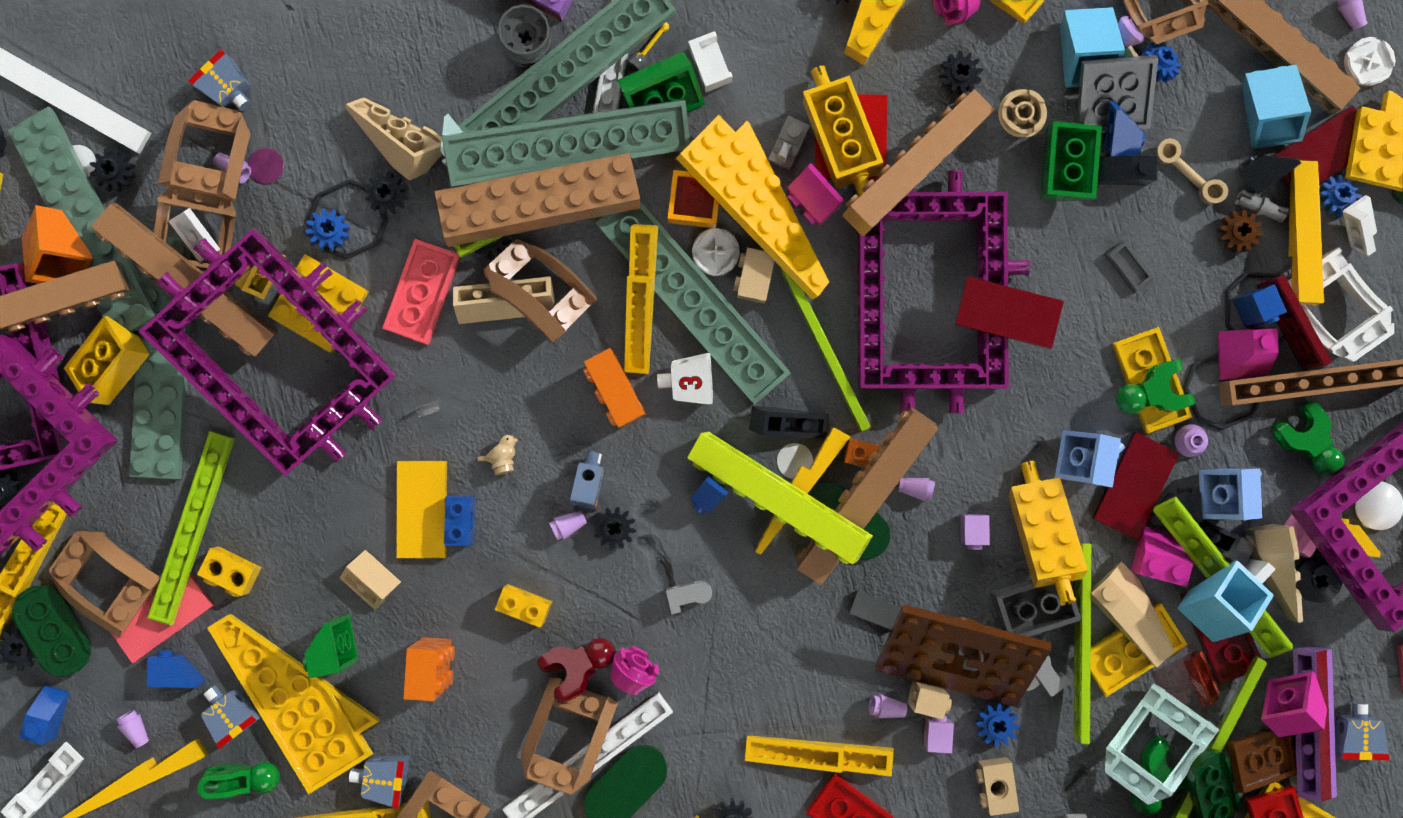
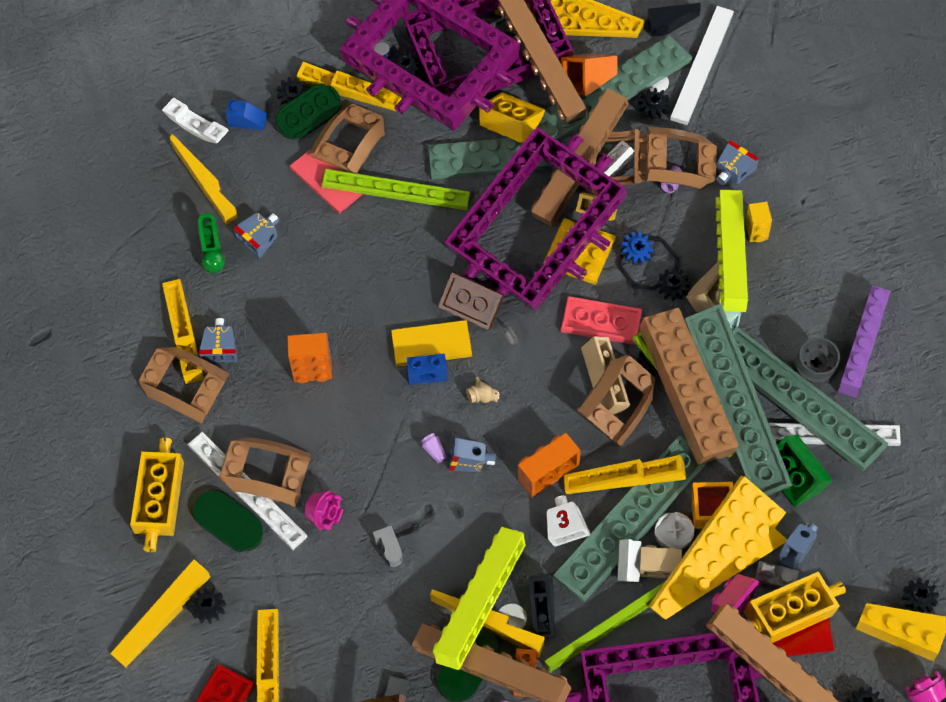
camera: 80 degrees right, 25 degrees down
(133, 728) = (241, 172): lavender cone -> none
(172, 671) = (287, 191): blue slope -> none
(231, 565) = (369, 219): yellow brick -> none
(266, 165) = (678, 202): flat silver sticker -> none
(306, 716) = (265, 283): yellow wing -> none
(316, 68) = (758, 222): none -> yellow brick
(331, 649) = (319, 289): green slope -> none
(356, 108) = (732, 251): none -> neon yellow brick
(369, 579) = (372, 313): tan panel -> none
(372, 452) = (471, 300): none -> plate
(523, 605) = (365, 424): yellow brick -> none
(578, 666) = (321, 469): dark red piece -> none
(616, 537) = (434, 477): black gear -> none
(637, 60) = (819, 450): hinge -> none
(708, 496) = (473, 548): blue slope -> none
(709, 62) = (829, 503): white panel -> none
(750, 312) = (629, 560): none -> white panel
(759, 108) = (800, 541): none -> sand blue torso

